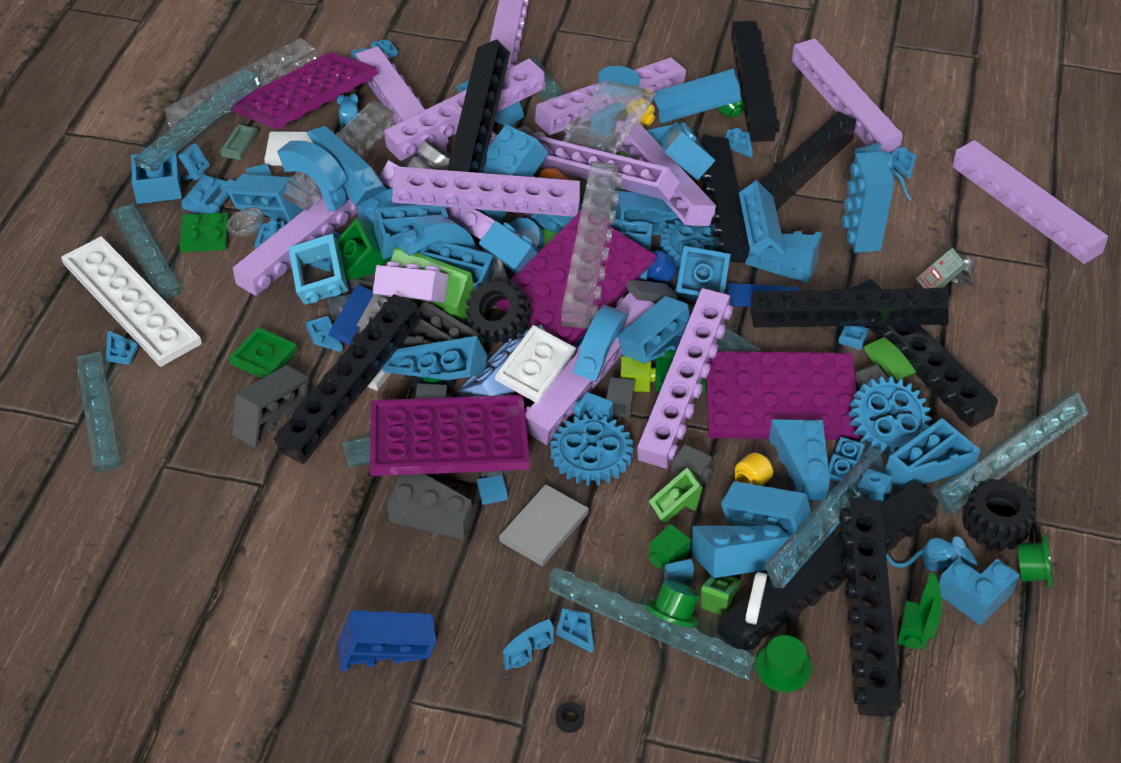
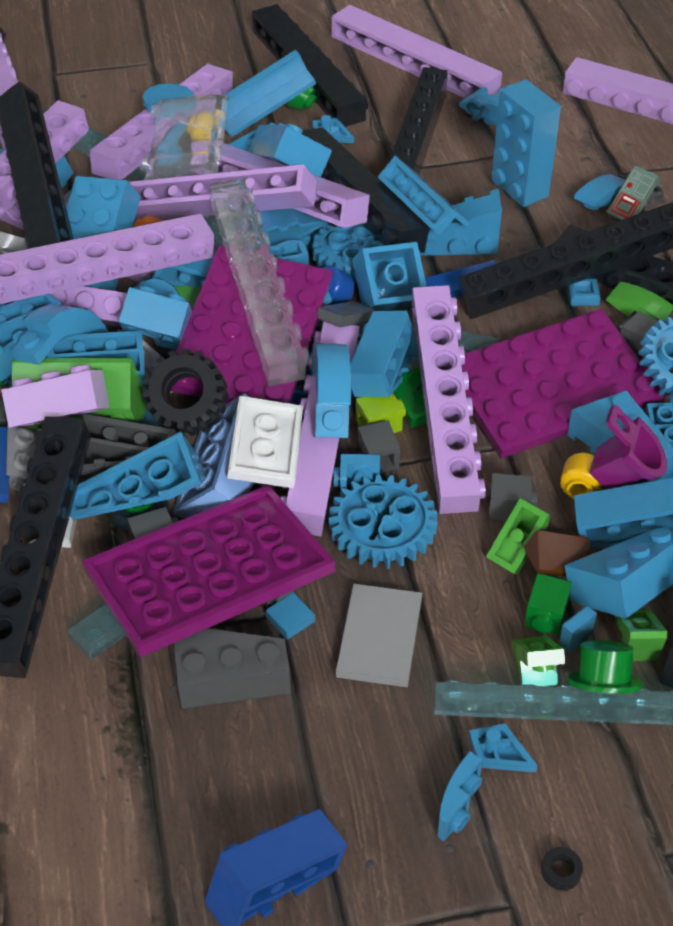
camera: 25 degrees left, 0 degrees up
(637, 583) = (538, 660): none -> slope
(692, 512) = (553, 550): none -> reddish brown slope
(788, 466) = (629, 454): none -> magenta container
(919, 259) = (599, 191): none -> dark azure slope

